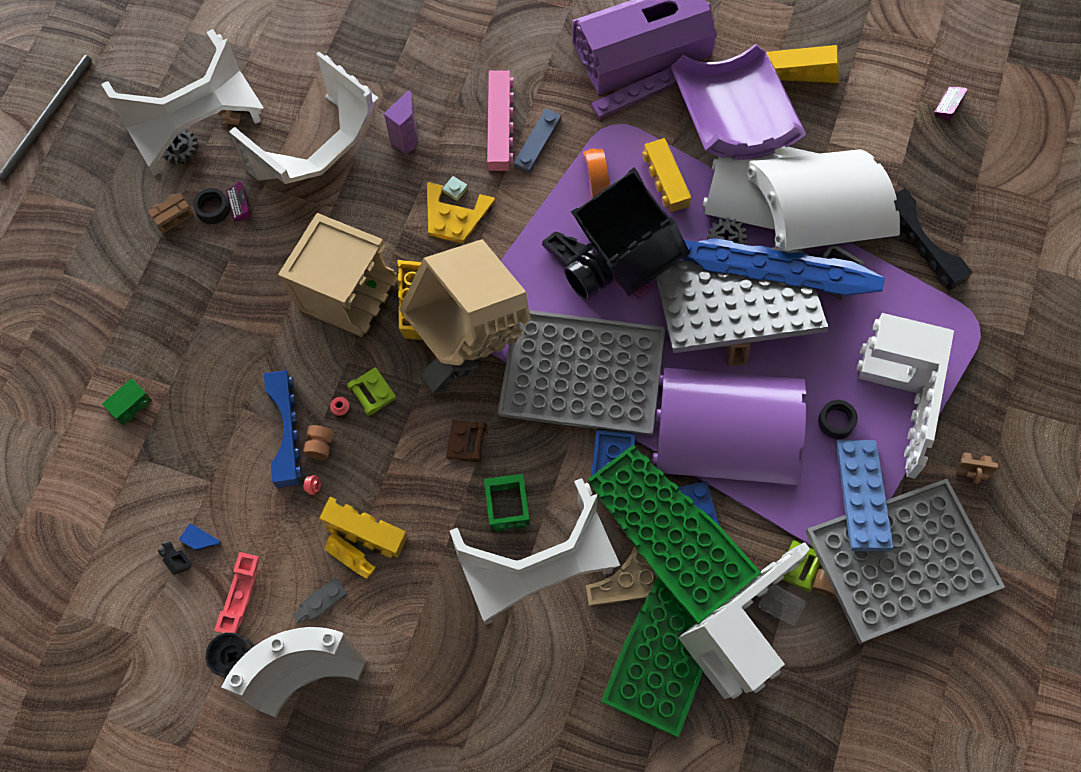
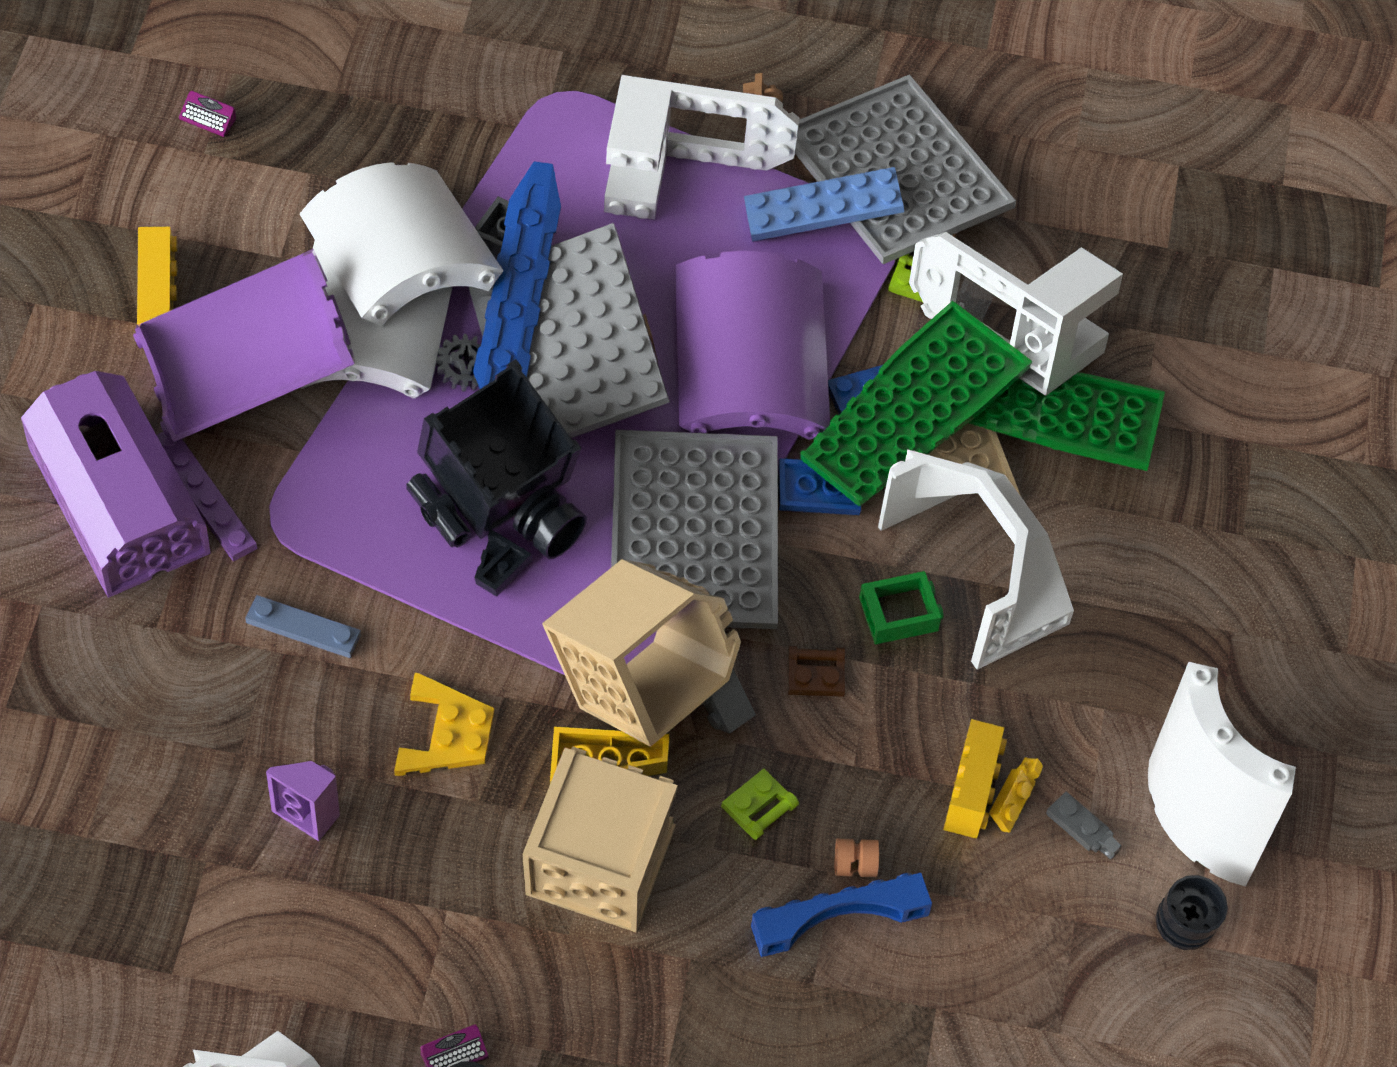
camera: 105 degrees left, 10 degrees down
(174, 560) = (1066, 1025): black plate -> none
(197, 538) = (1027, 1006): blue tile -> none
(239, 594) = (1099, 933): coral slope -> none
(312, 484) = (920, 859): coral plate -> none
(339, 411) = (791, 850): coral plate -> none
(354, 106) = (294, 881): white panel -> none
(454, 188) = (399, 732): light aqua plate -> none
(499, 122) = (272, 678): bright pink brick -> none
(597, 170) = (373, 520): orange arch -> none
(667, 175) = (366, 439): yellow brick -> none
(846, 408) = (724, 220): black tyre -> none
(949, 268) = (481, 118): black arch -> none

